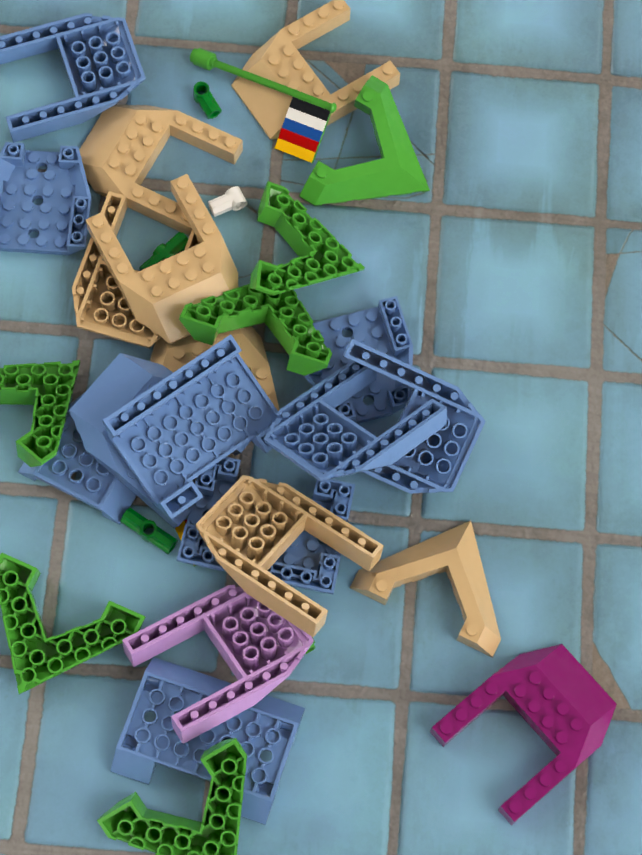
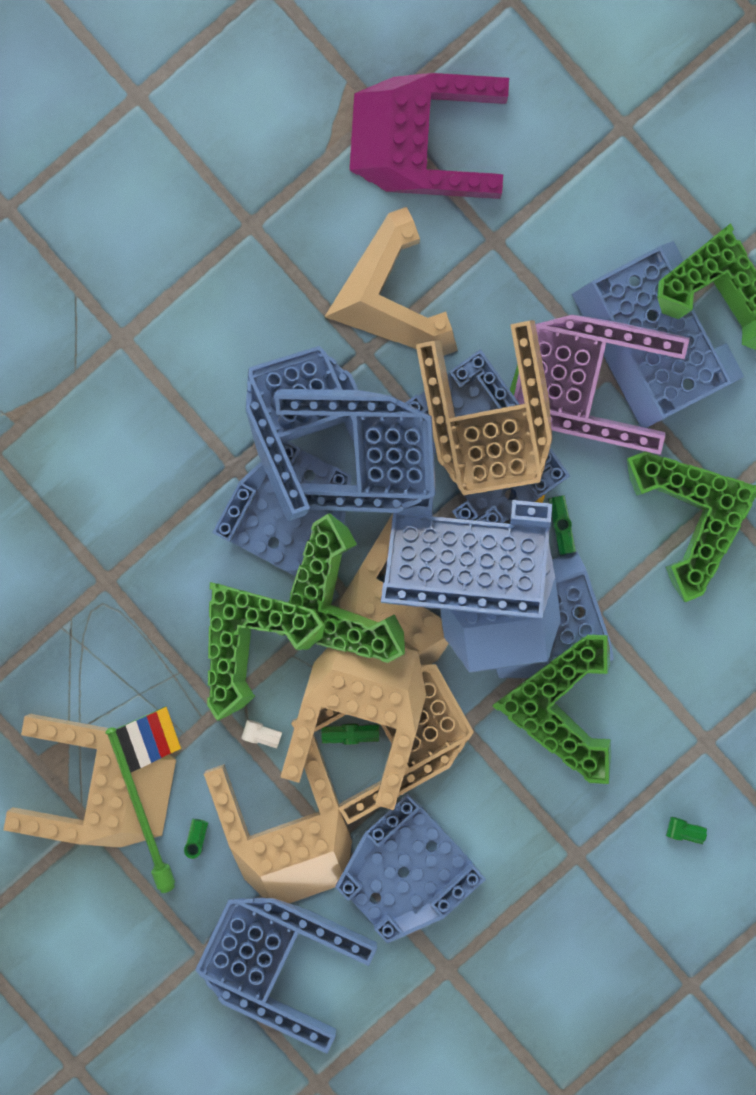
camera: 135 degrees left, 20 degrees up
(393, 174) = (106, 637): bright green wedge -> none

